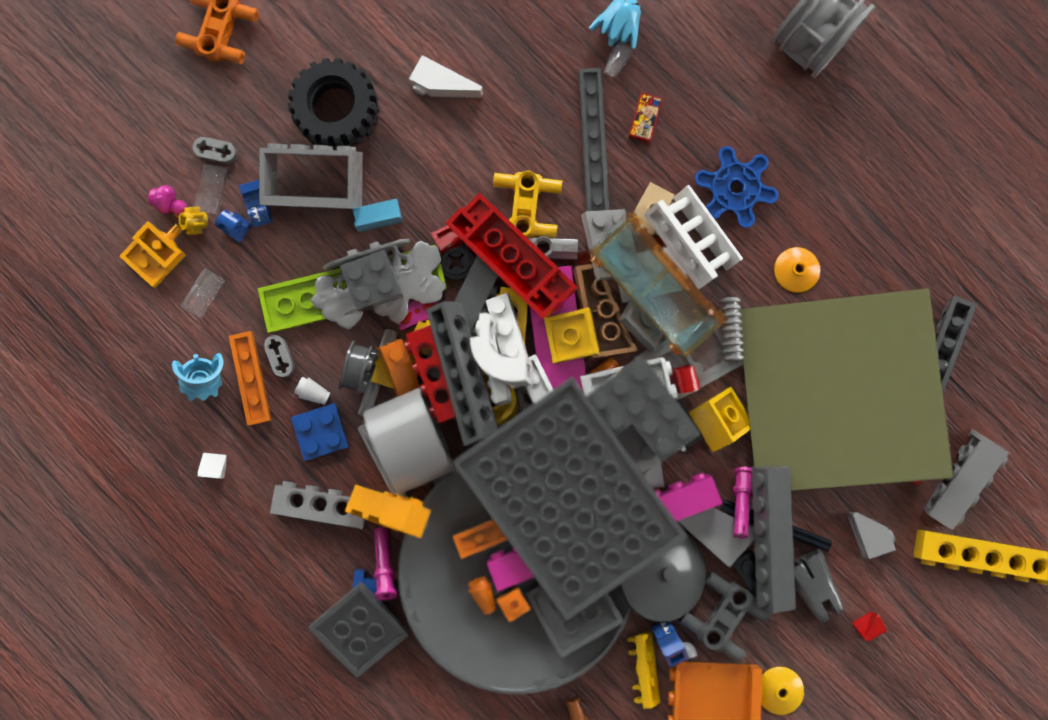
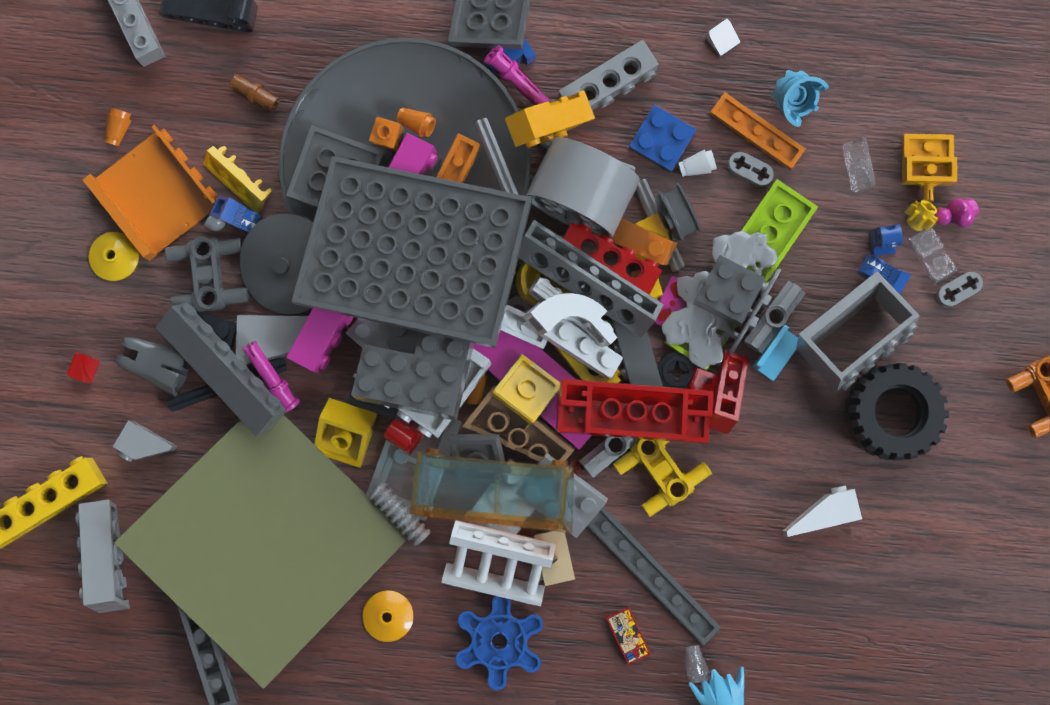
camera: 135 degrees right, 0 degrees up
(341, 242) = (784, 305): none -> light grey piece
(433, 216) = (728, 392): none -> red slope
(450, 516) = (495, 156): none -> light grey axle

